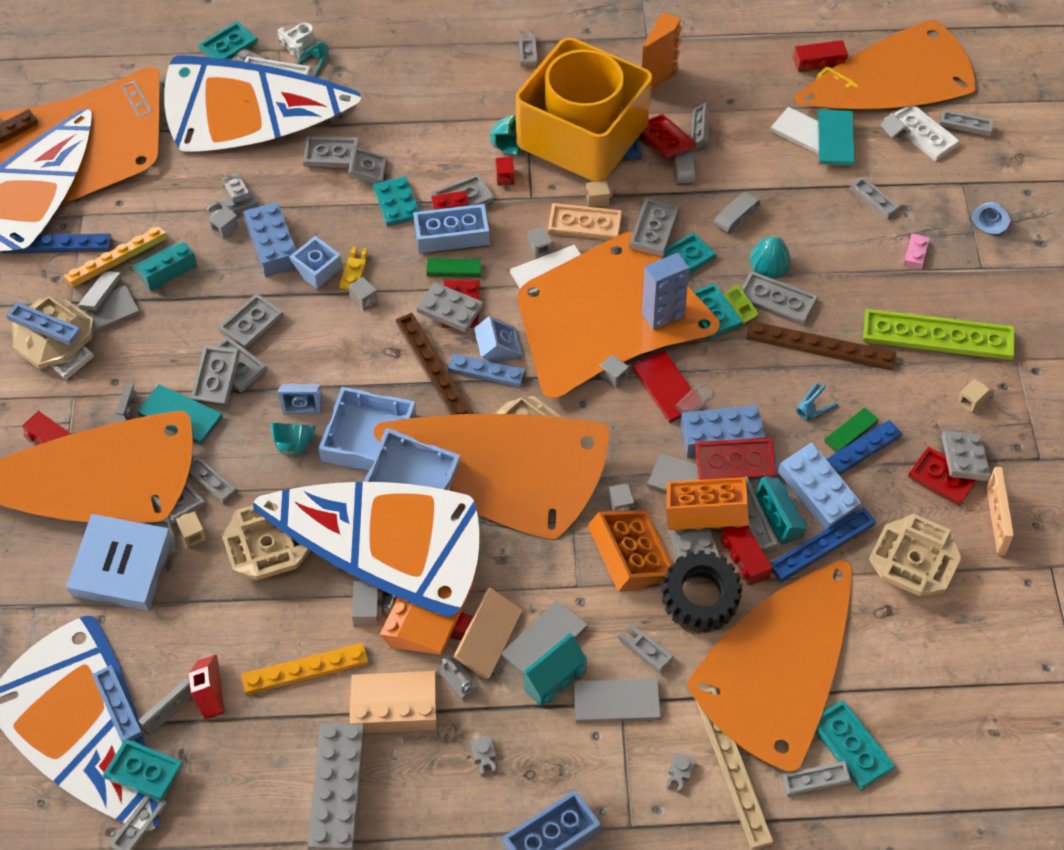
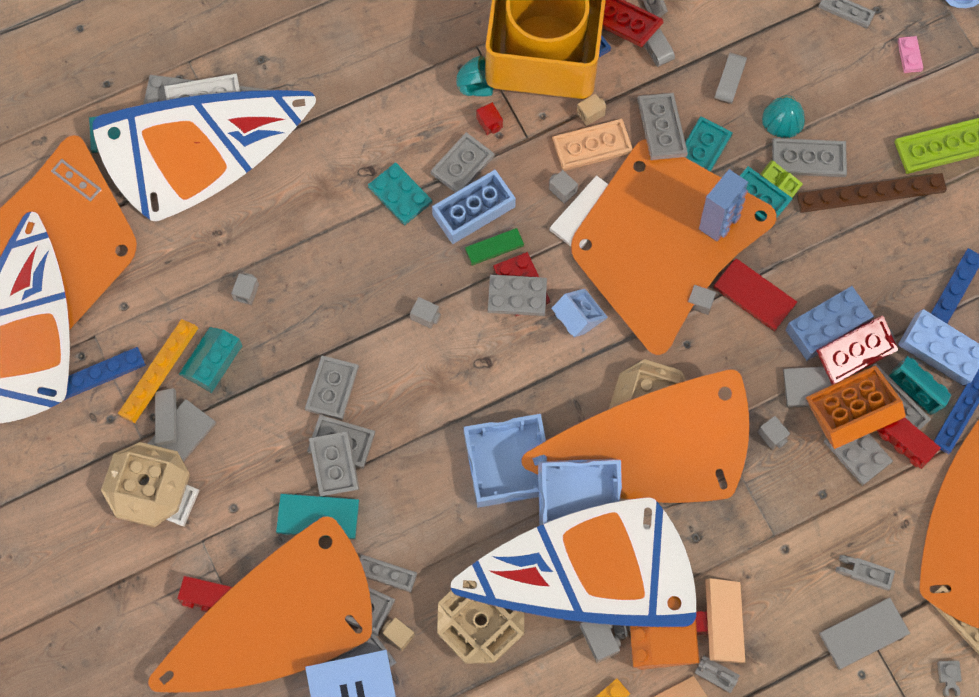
camera: 25 degrees left, 15 degrees up
(43, 323) = (144, 487): medium blue plate -> none
(124, 407) = (263, 535): light grey hinge -> none
(228, 42) = (131, 75): teal plate -> none
(236, 188) = (237, 245): light grey hinge -> none
(237, 207) = (243, 262): light grey hinge -> none
(270, 238) = (303, 288): medium blue brick -> none
(292, 438) = (442, 497): teal hair -> none
(296, 38) = (199, 44): white pin -> none
(300, 398) = (427, 451): light blue slope -> none
(316, 262) = (363, 297): light blue slope -> none
(318, 51) = (230, 48): teal plant -> none
(328, 151) = (306, 163): light grey plate -> none
(354, 268) = (400, 289): yellow hinge -> none
(367, 165) = (352, 166): light grey tile -> none
(432, 365) = (537, 368): reddish brown plate -> none
(450, 200) = (457, 176): red plate -> none
(486, 370) = (582, 347): medium blue plate -> none
(542, 636) = (774, 603): light grey tile -> none
(555, 670) = (803, 632): teal slope -> none
(630, 548) = (807, 479): orange slope -> none
(695, 398) = (790, 300): clear tile -> none
(701, 566) = (917, 495): black tyre -> none
(807, 408) = (891, 267): dark azure plant -> none
(851, 430) = (938, 272): green tile -> none

